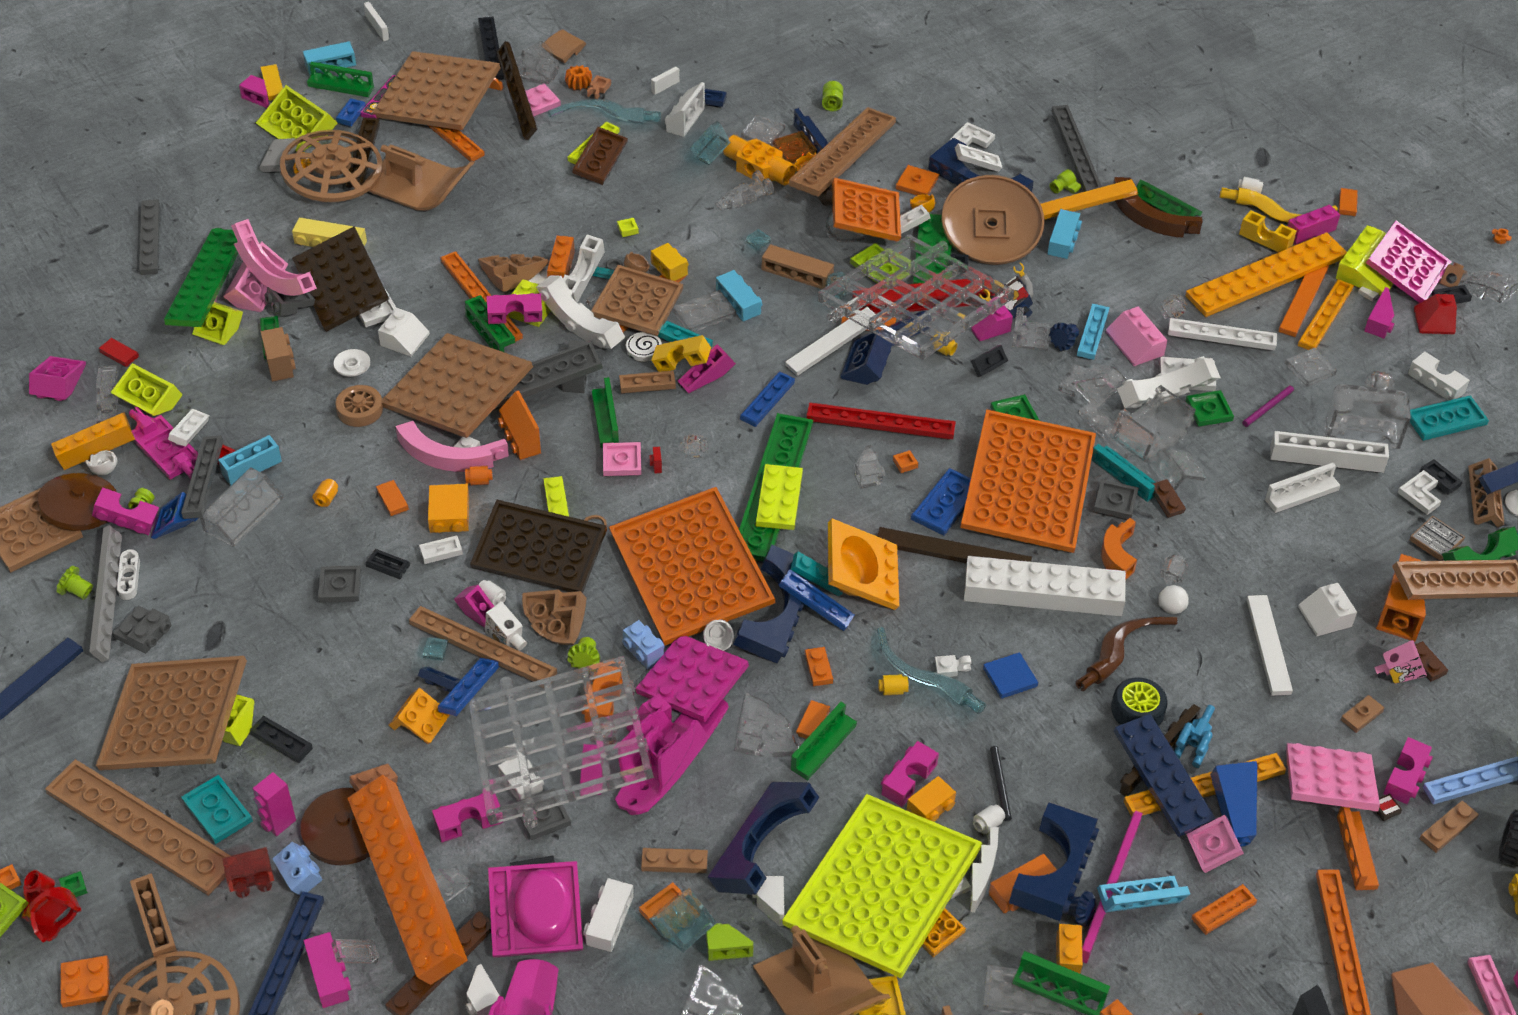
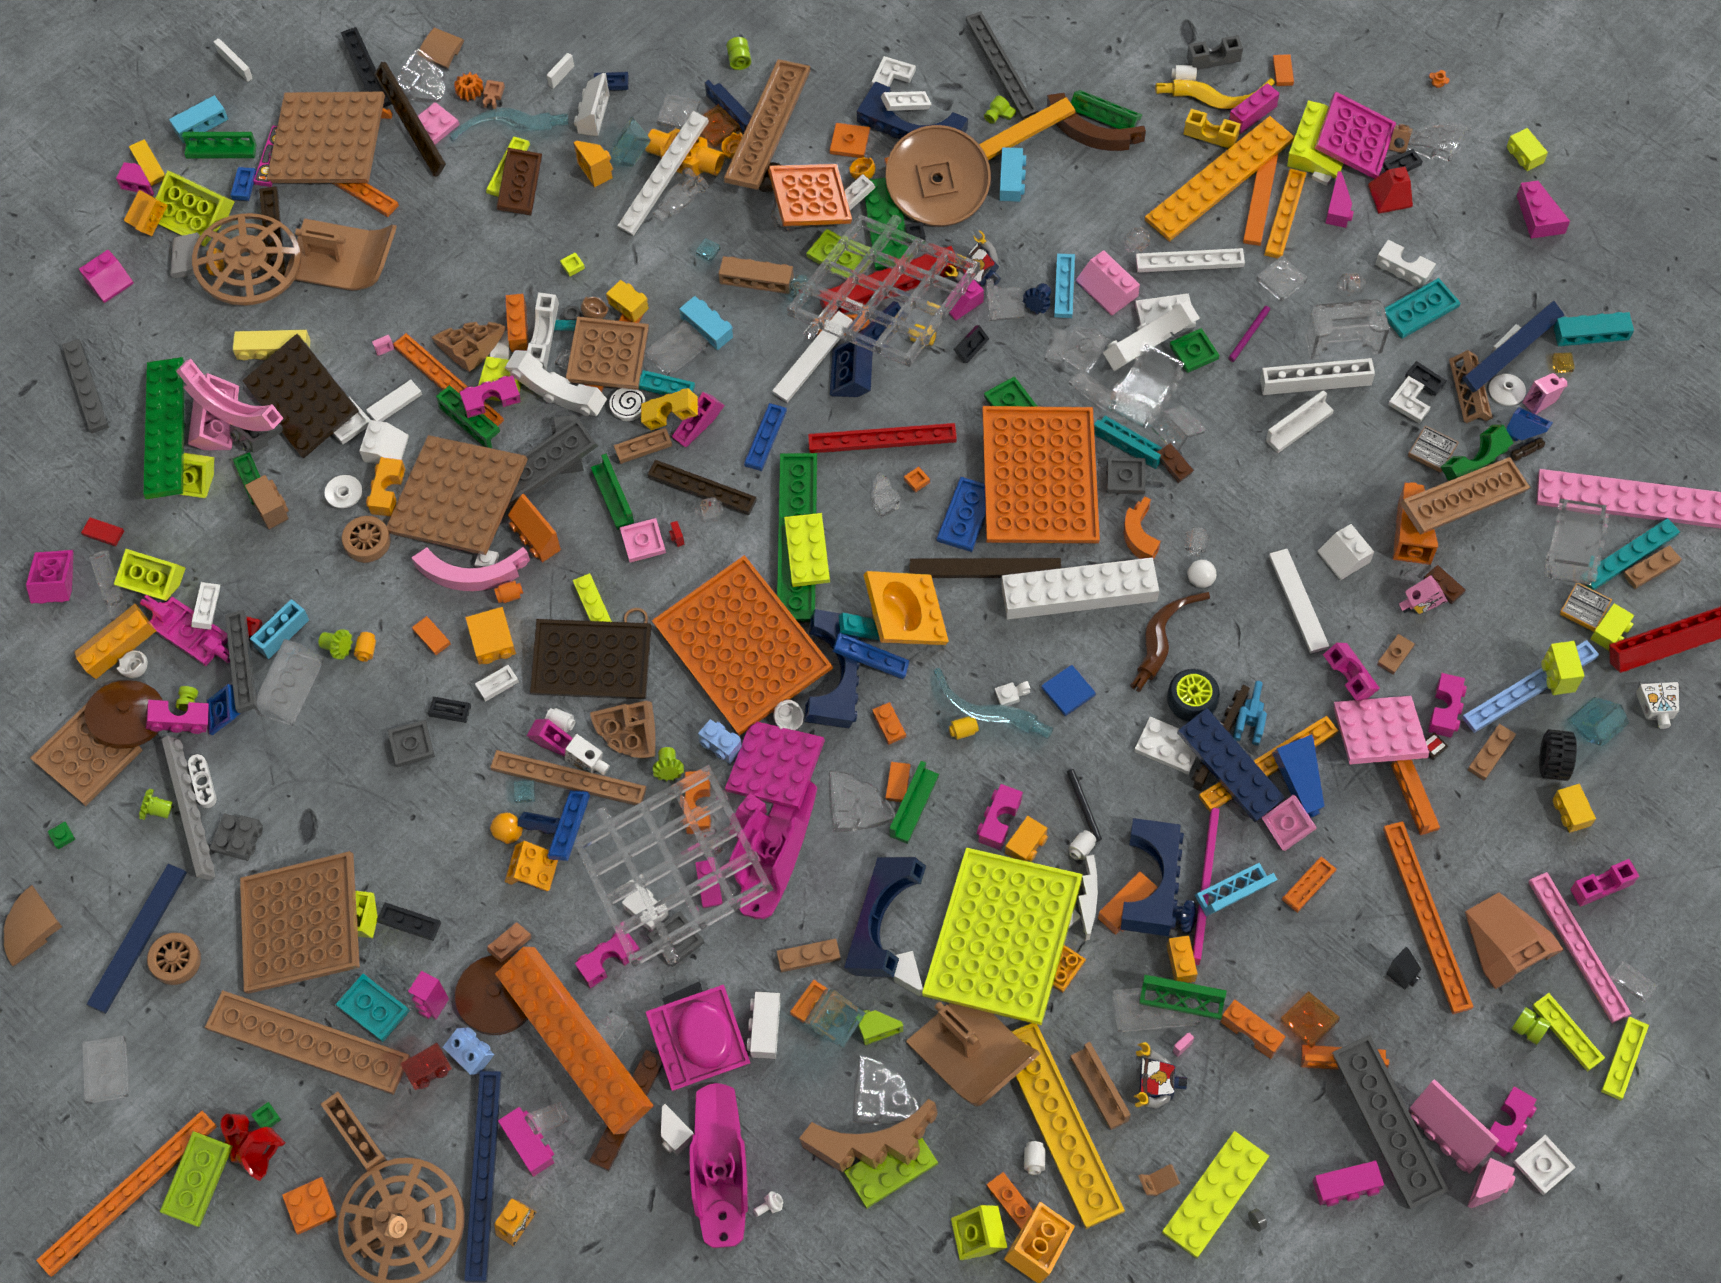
camera: 10 degrees left, 15 degrees up
(40, 721) = (174, 959): none -> medium nougat wheel
(201, 156) = (105, 276): none -> dark pink slope
(255, 116) = (145, 213): none -> light orange bracket
(299, 483) = (337, 643): none -> lime gear
(398, 356) = (387, 472): none -> light orange arch
(406, 677) = (506, 828): none -> light orange hair
(427, 302) = (394, 401): none -> white tile
(431, 255) = (383, 345): none -> bright pink tile
(673, 151) = (593, 162): none -> light orange slope
(691, 425) = (701, 487): none -> dark brown plate
(733, 170) = (663, 173): none -> white plate
(1100, 747) = (1163, 744): none -> white plate
(1296, 177) = (1227, 52): none -> dark grey arch
(1317, 726) = (1360, 682): none -> dark pink arch

